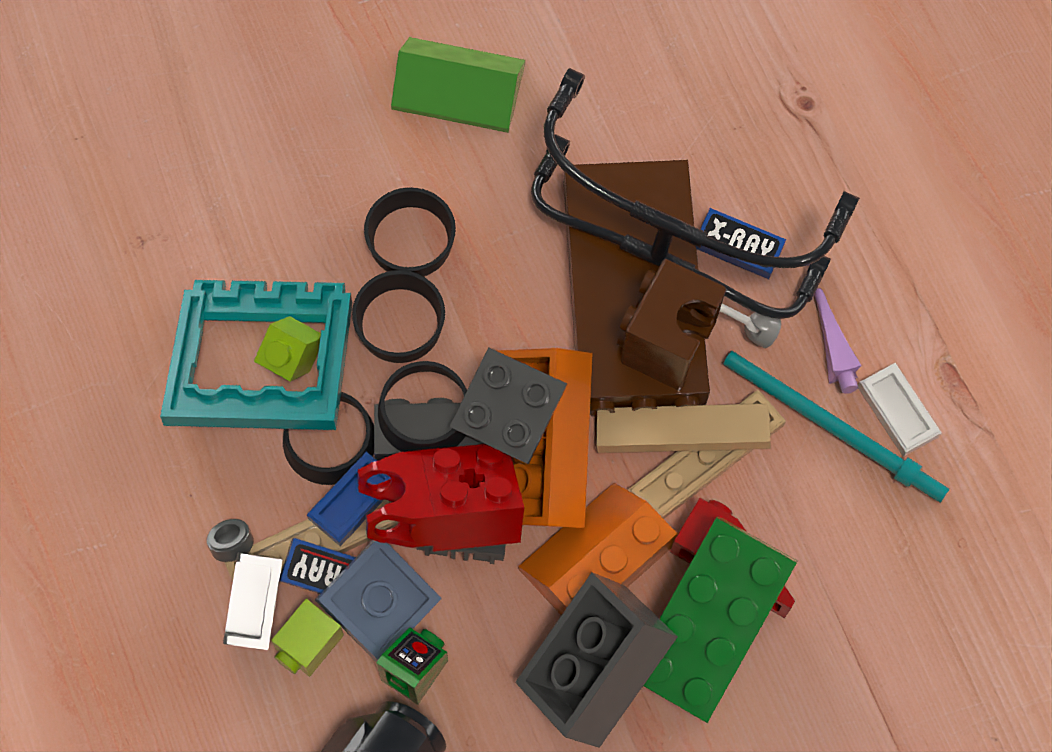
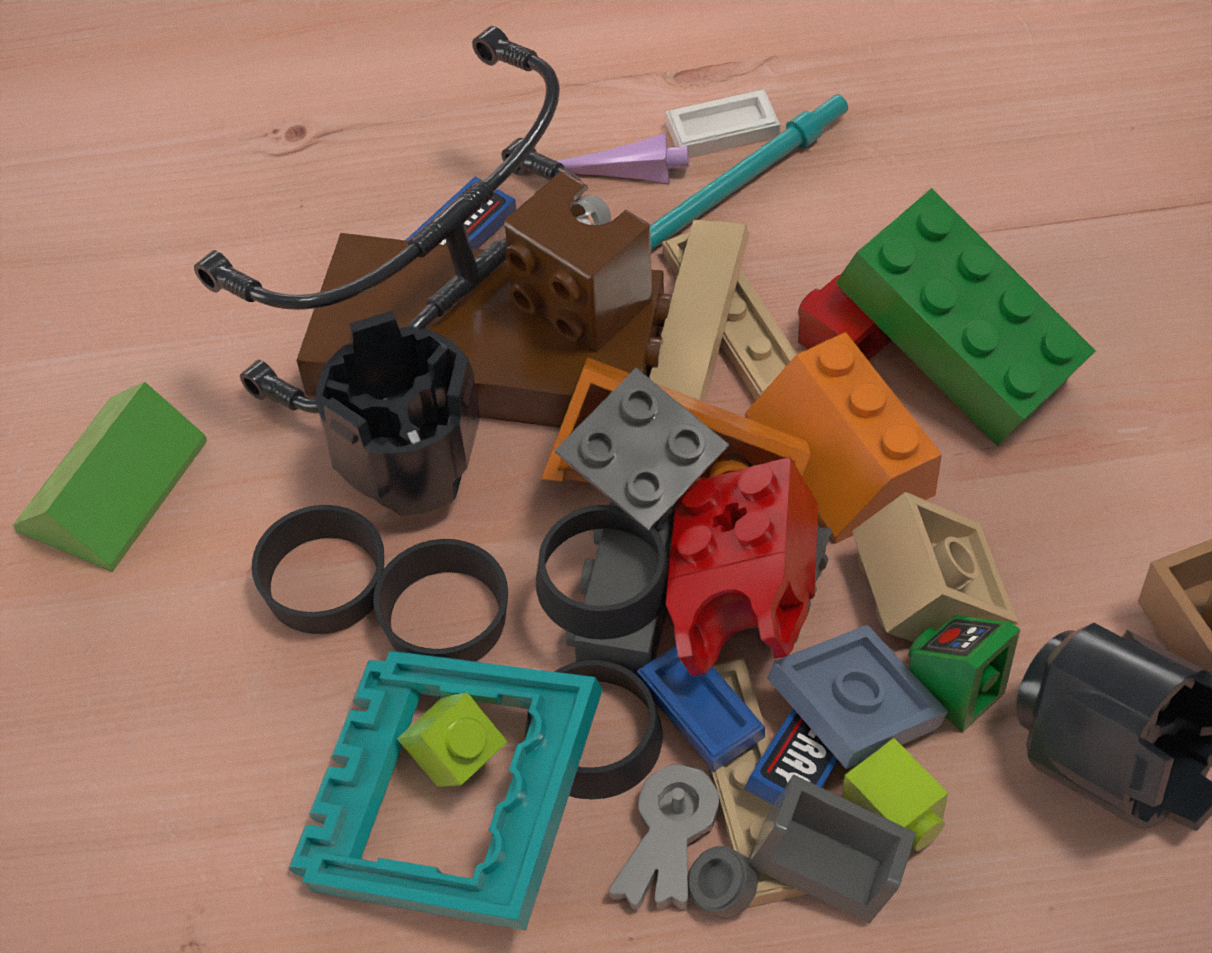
camera: 70 degrees left, 15 degrees down
(278, 502) = (677, 809): none -> light grey piece
(490, 636) = (928, 568): none -> tan slope
(515, 223) = (399, 414): none -> black piece
(595, 660) = (1004, 435): dark grey brick -> none

